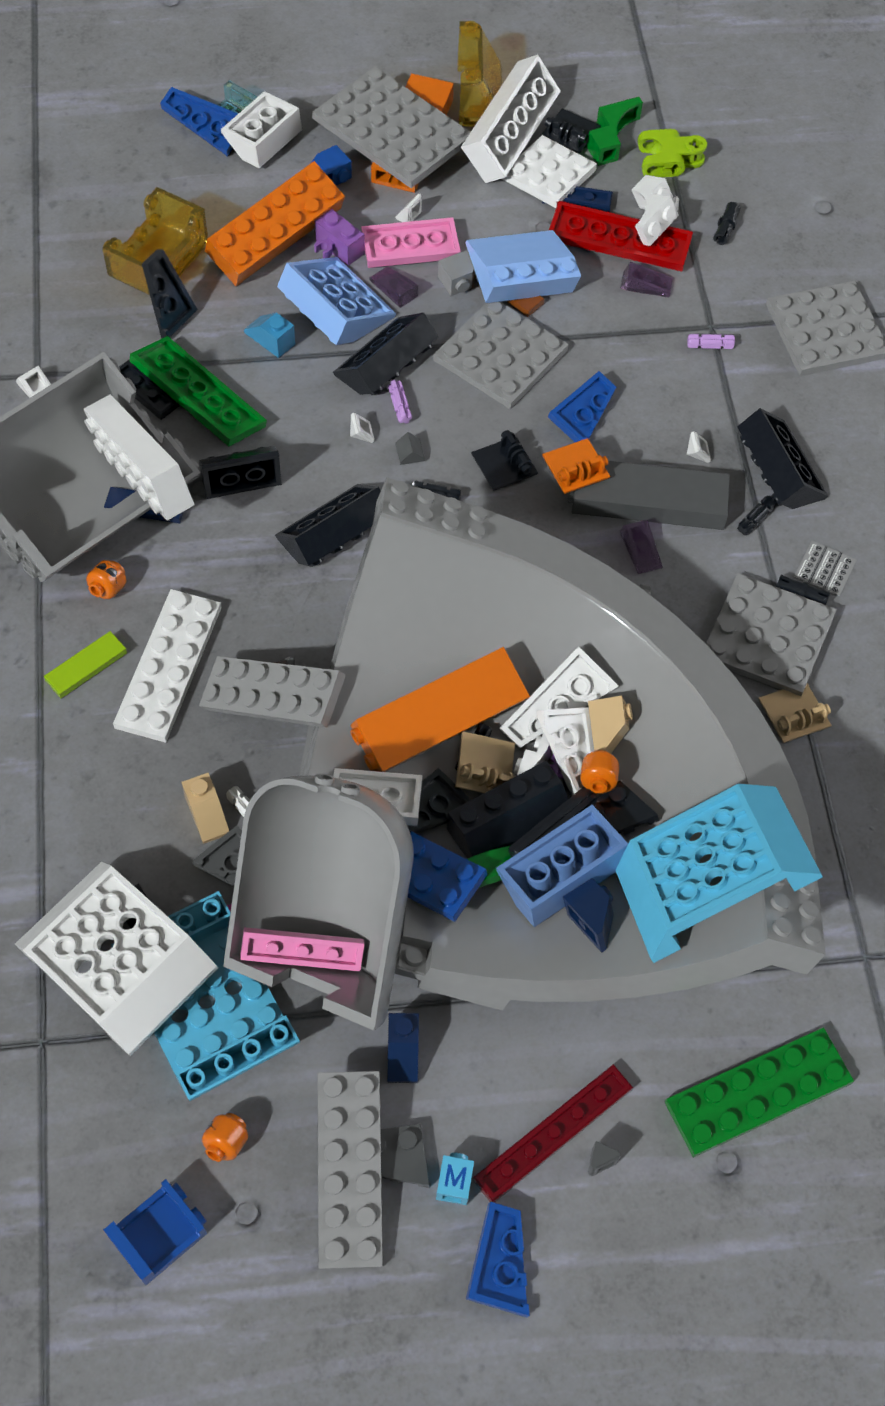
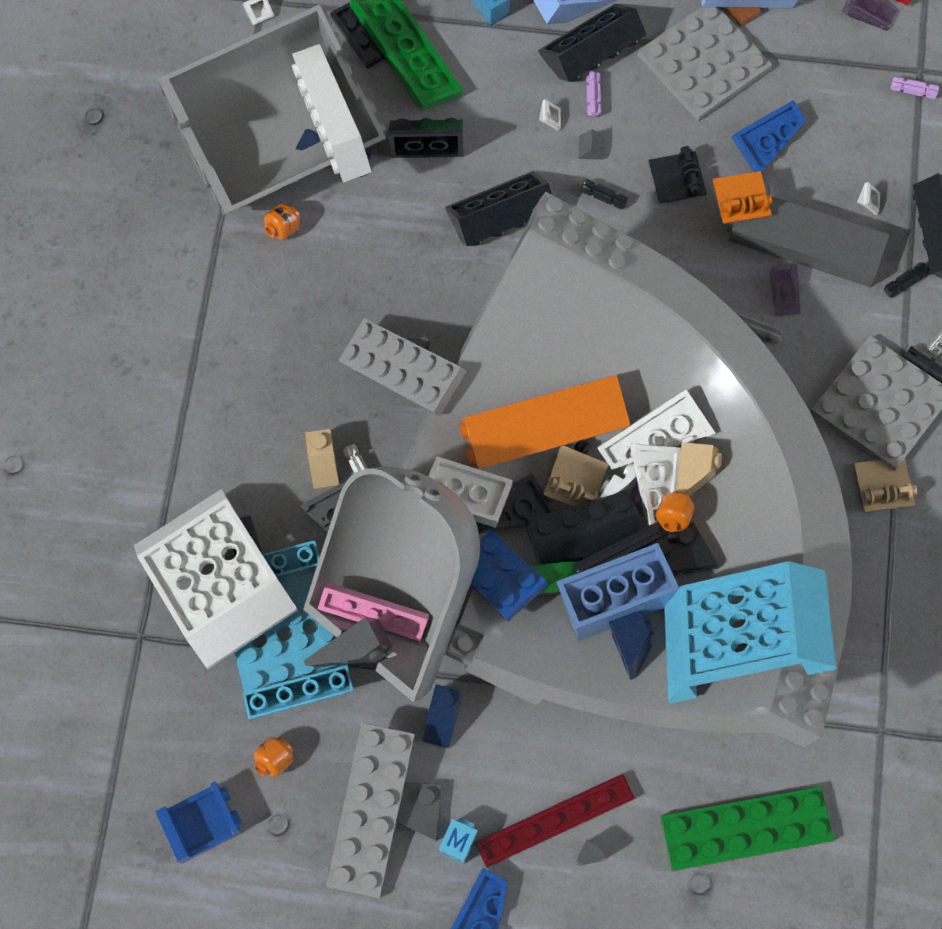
camera: 20 degrees right, 10 degrees up
(85, 664) = (247, 299): lime tile -> none
(167, 666) = (319, 315): white plate -> none
(293, 988) = (359, 644): none -> dark grey slope

